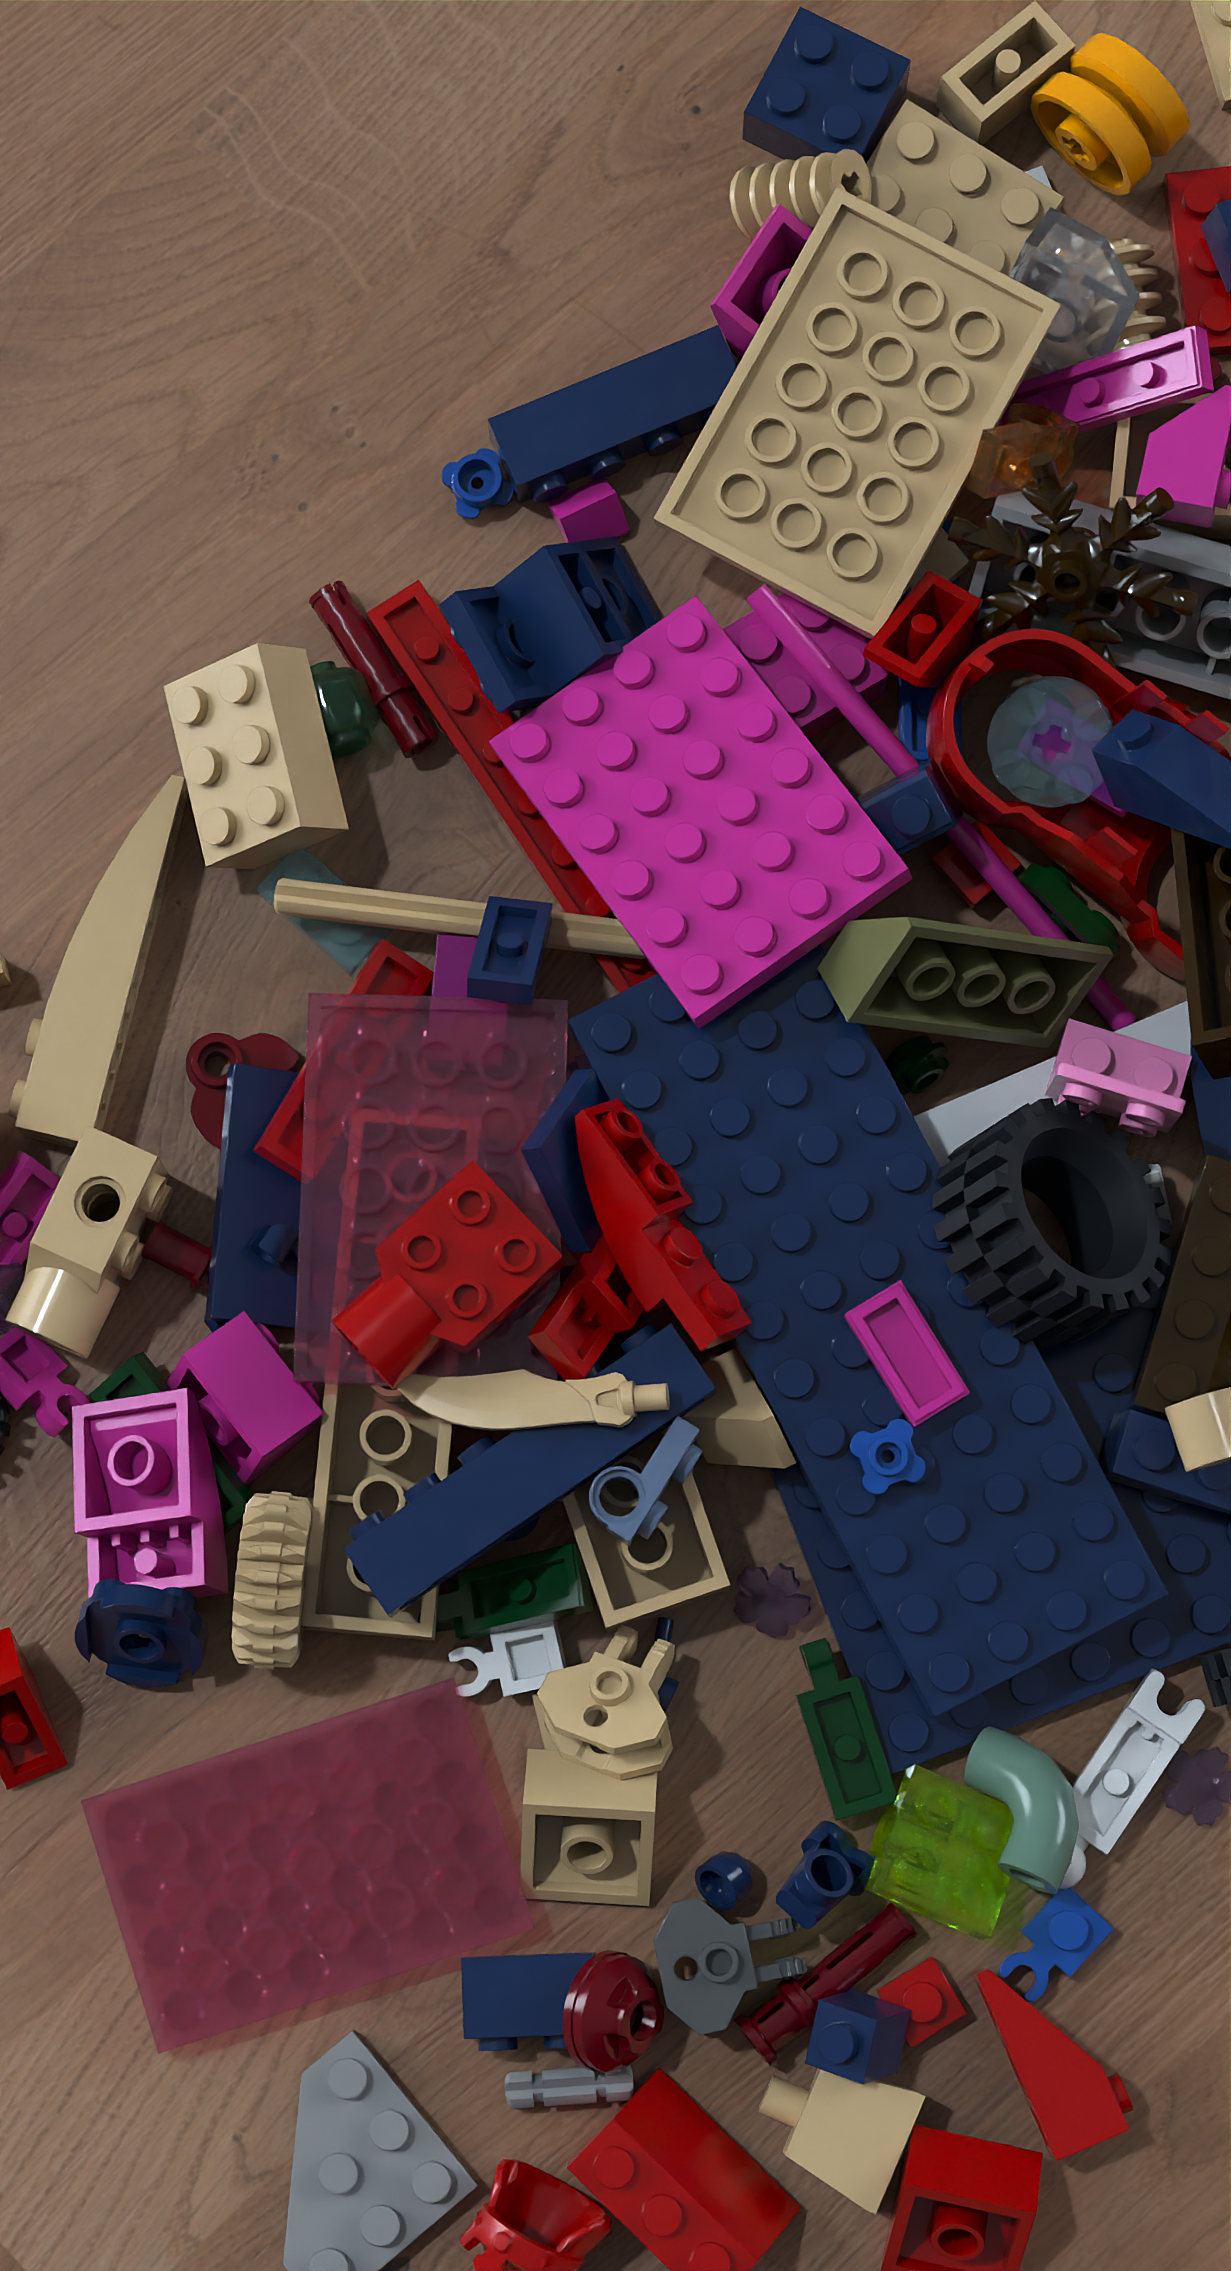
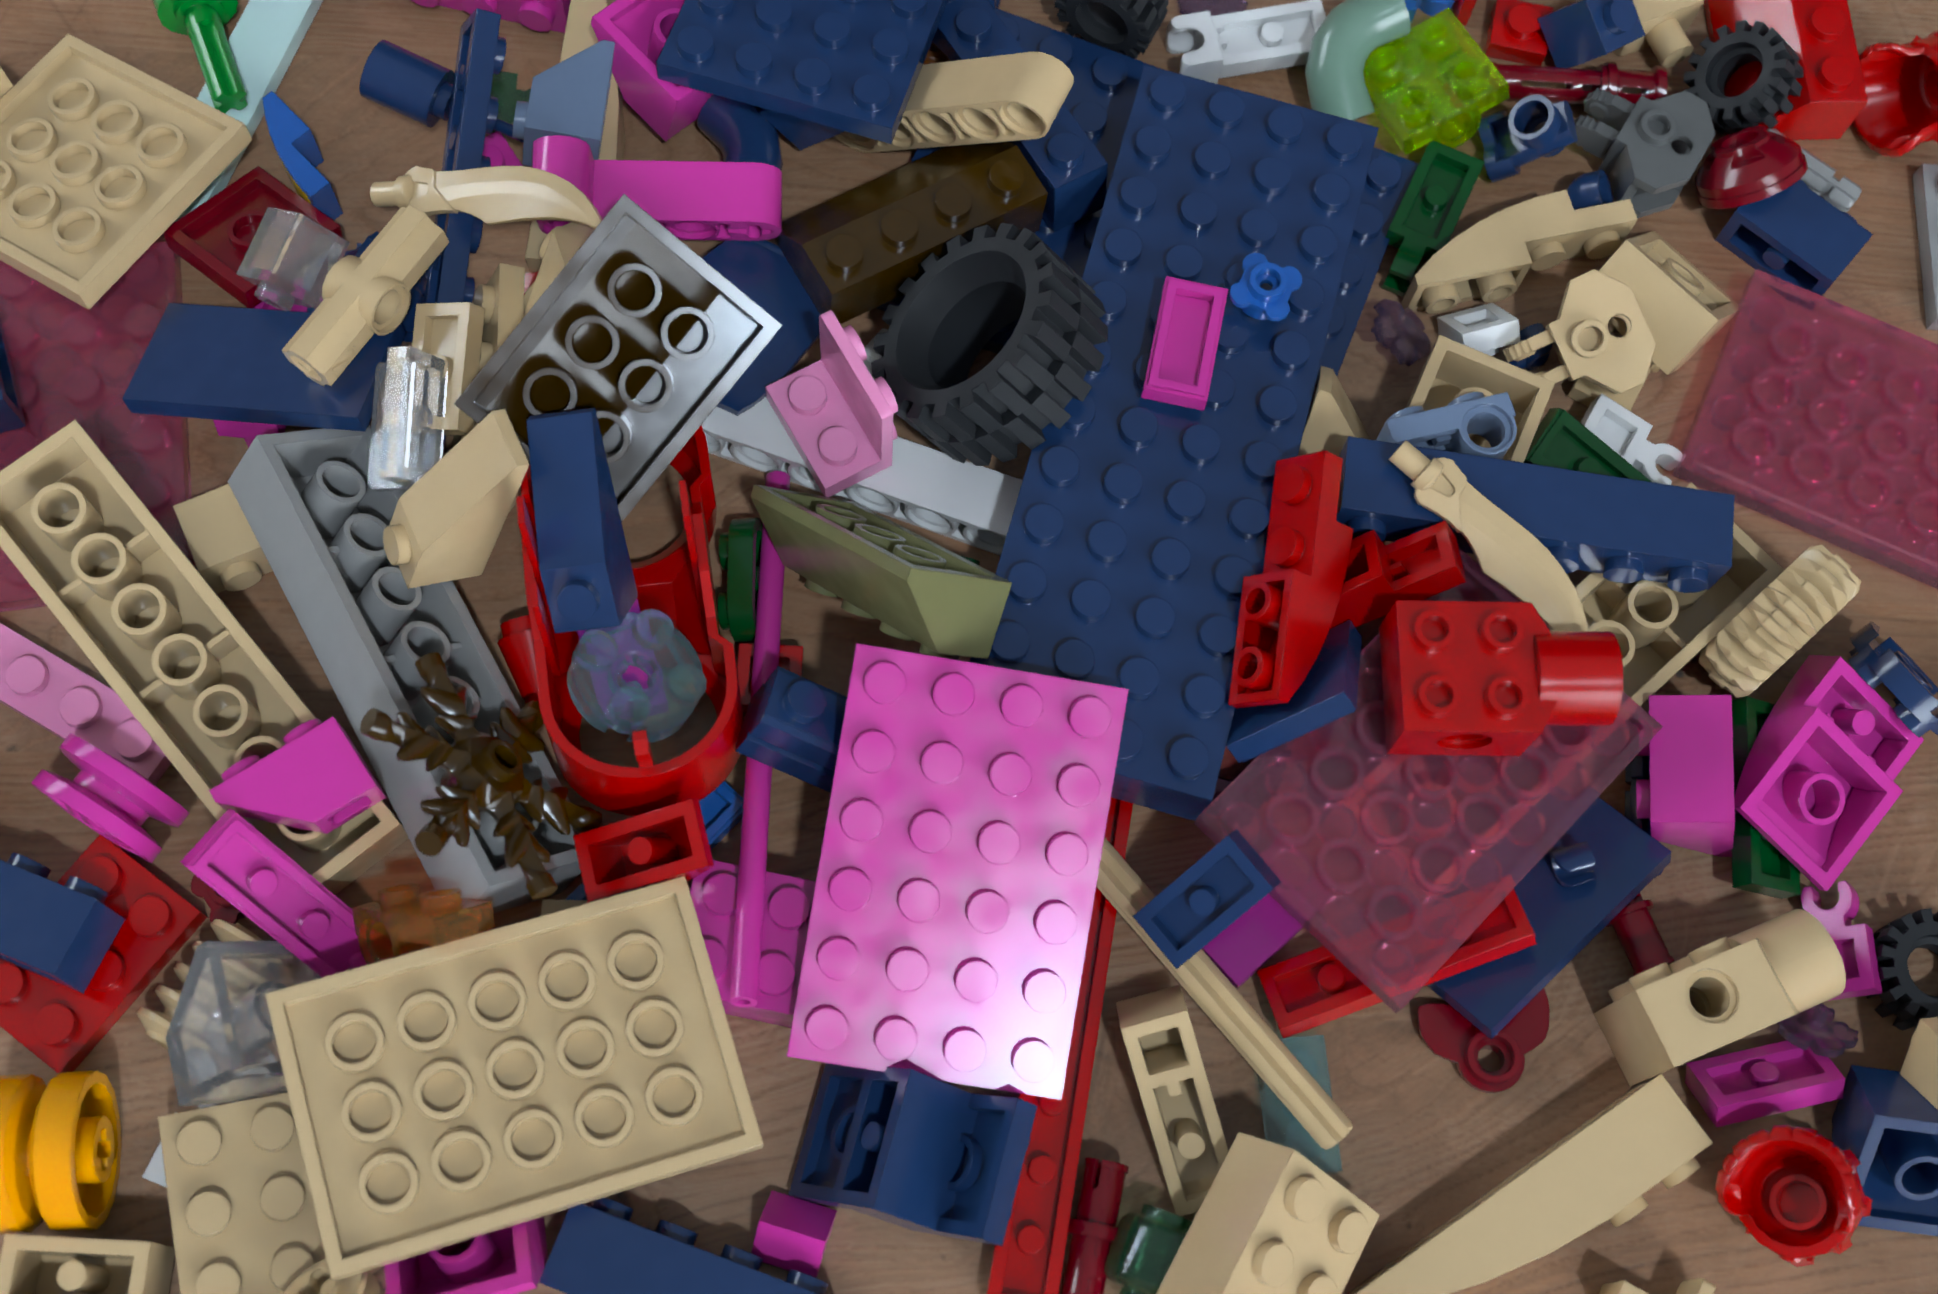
camera: 145 degrees left, 10 degrees down
(423, 834) = (1174, 1093): none -> tan slope
(669, 2124) = (1728, 55): none -> black tyre
(711, 1656) = (1481, 328): none -> white plate
(758, 1735) = (1499, 250): none -> tan slope

